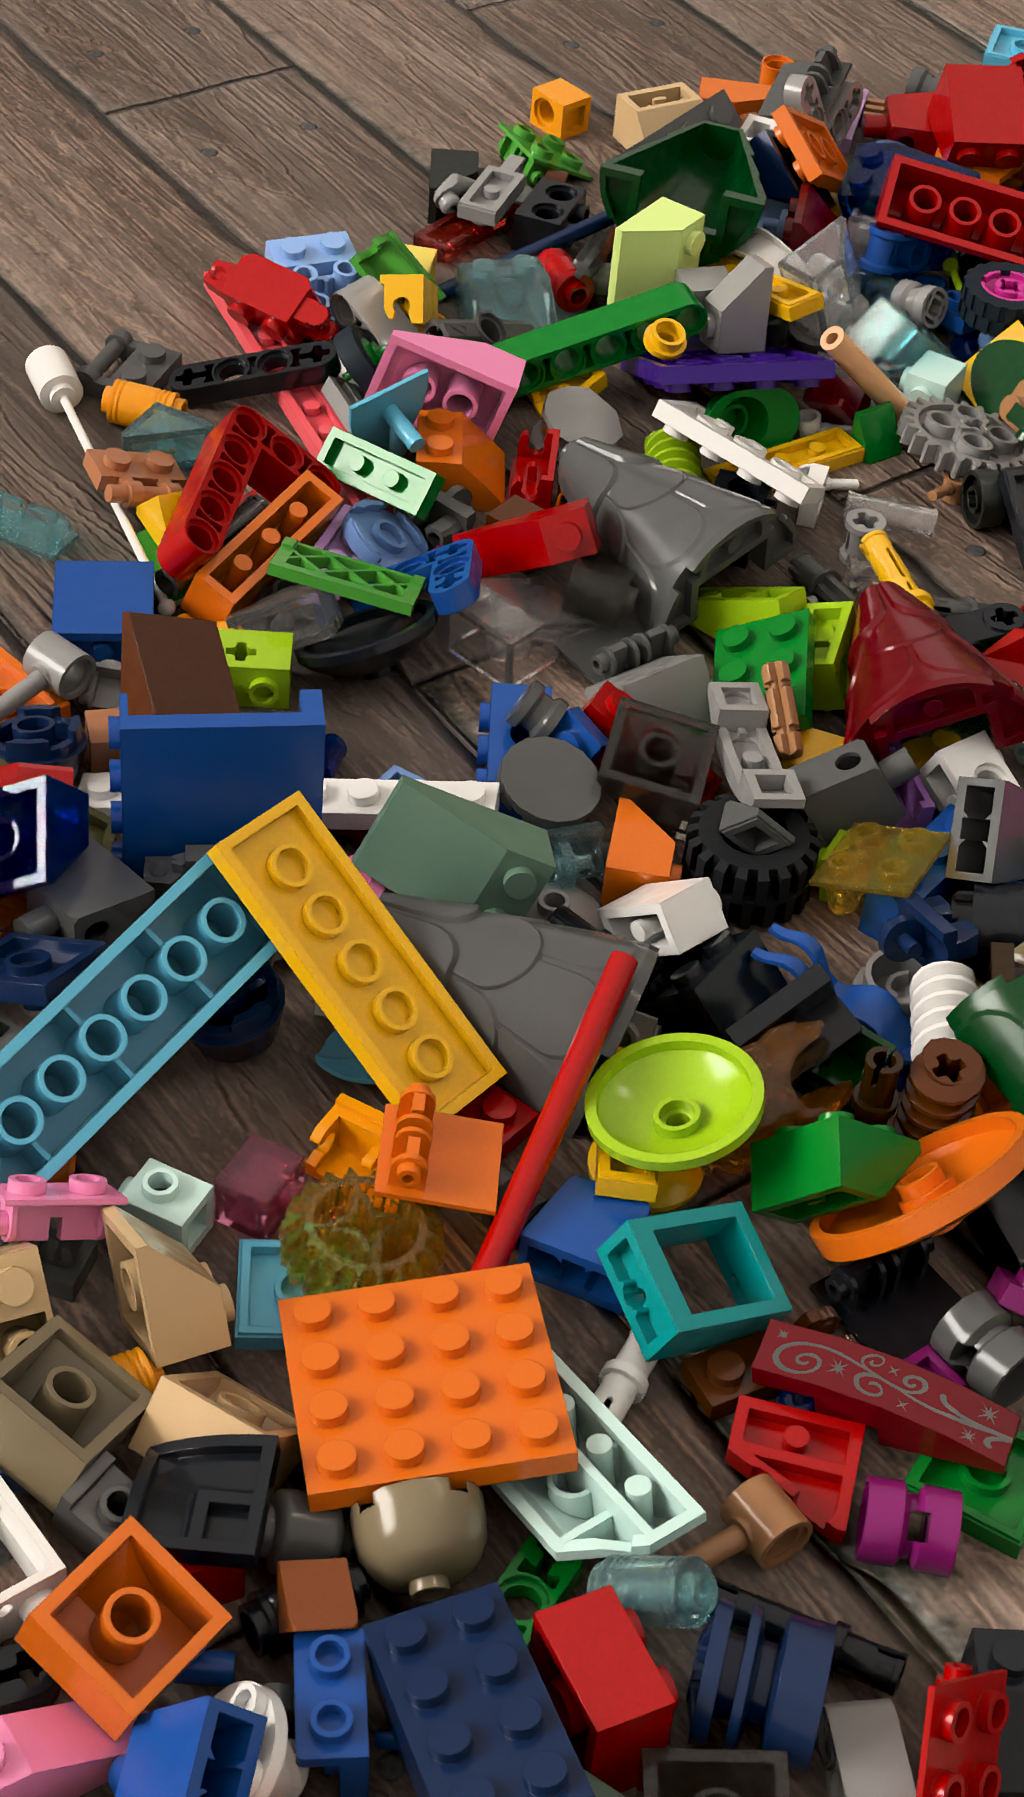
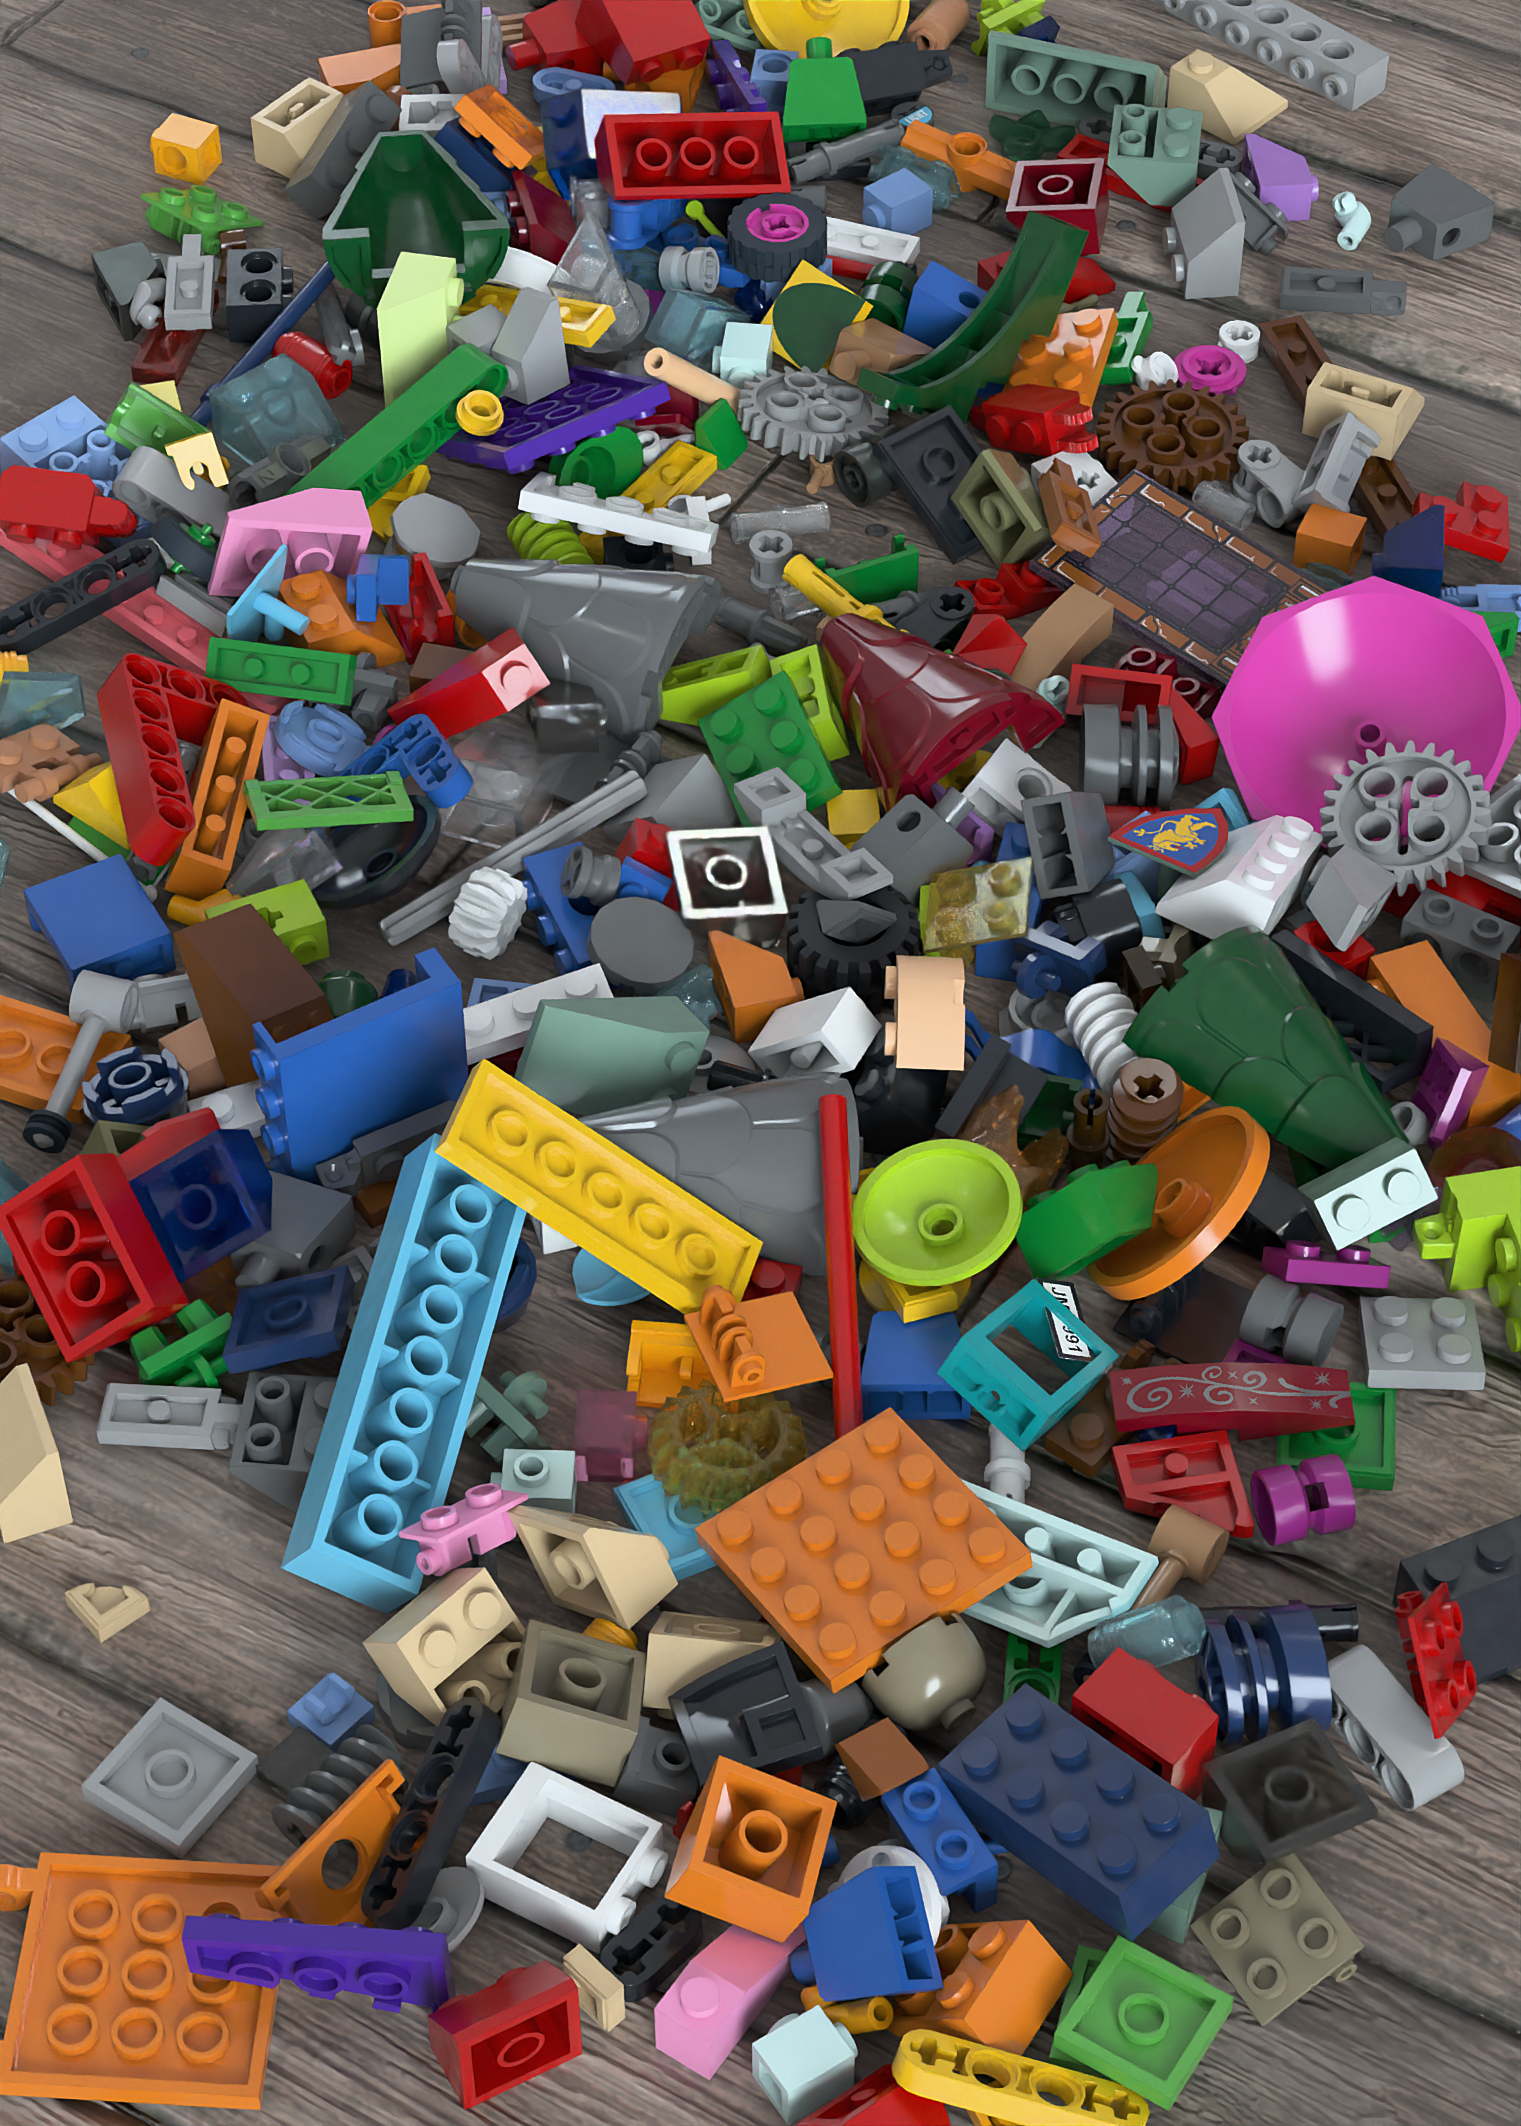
camera: 20 degrees left, 5 degrees up
(182, 1123) = (520, 1398): none -> sand green hips
(436, 715) = (487, 912): none -> white gear
(478, 683) = (548, 835): none -> light grey axle
(502, 436) = (376, 582): none -> blue bracket
(742, 1271) = (1066, 1342): none -> sticker
(766, 924) = (927, 1012): none -> light nougat brick
(782, 709) = (818, 790): medium nougat axle -> none
(951, 577) = (880, 577): none -> green hinge

